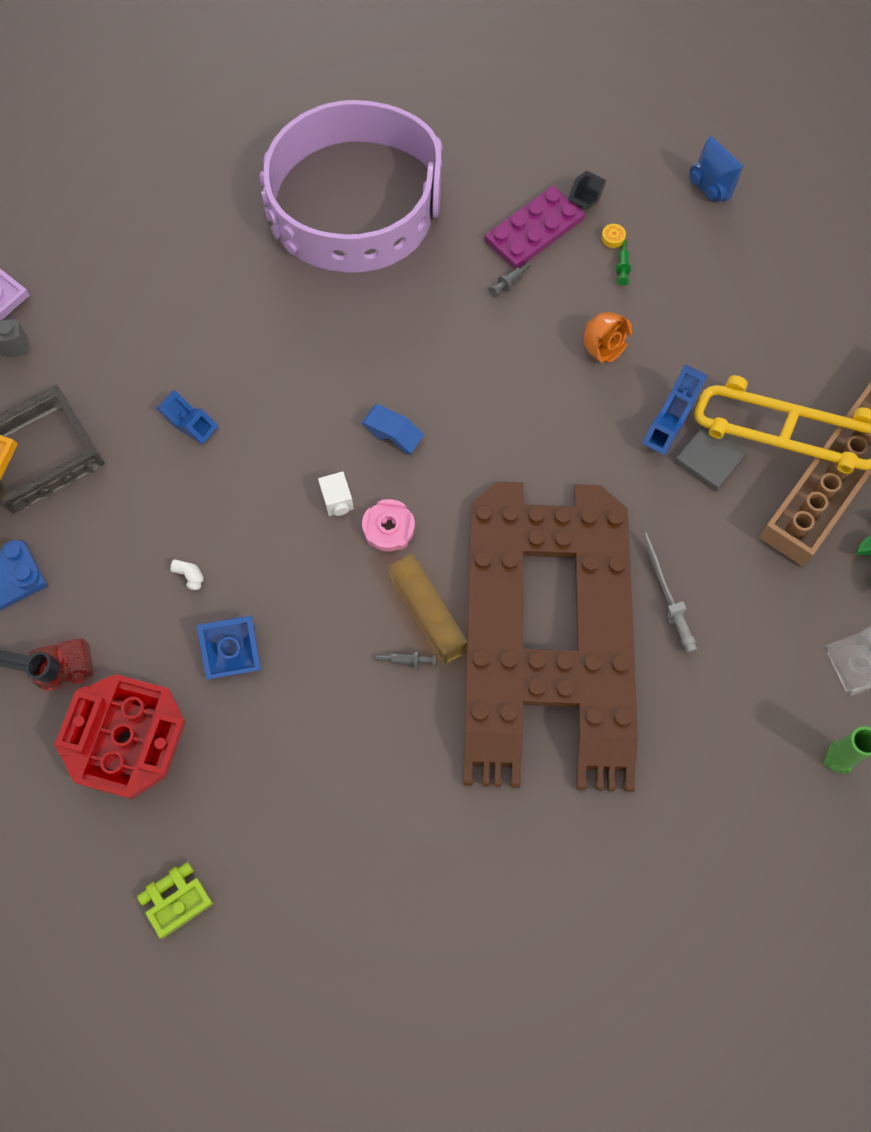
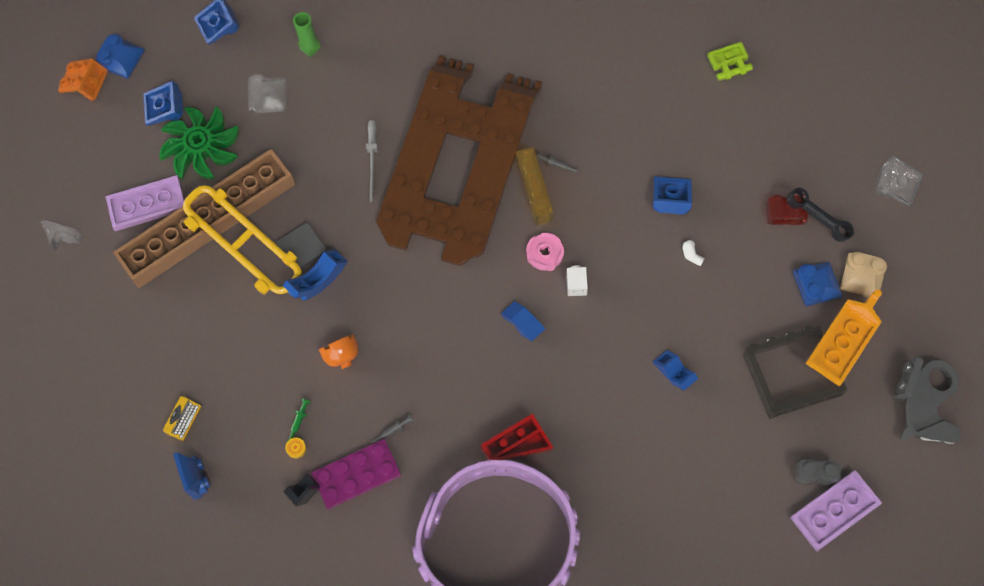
camera: 160 degrees left, 0 degrees up
(99, 718) = (753, 133): red piece -> none
(360, 289) = (517, 441): none -> red wedge
(756, 233) = (182, 418): none -> slope

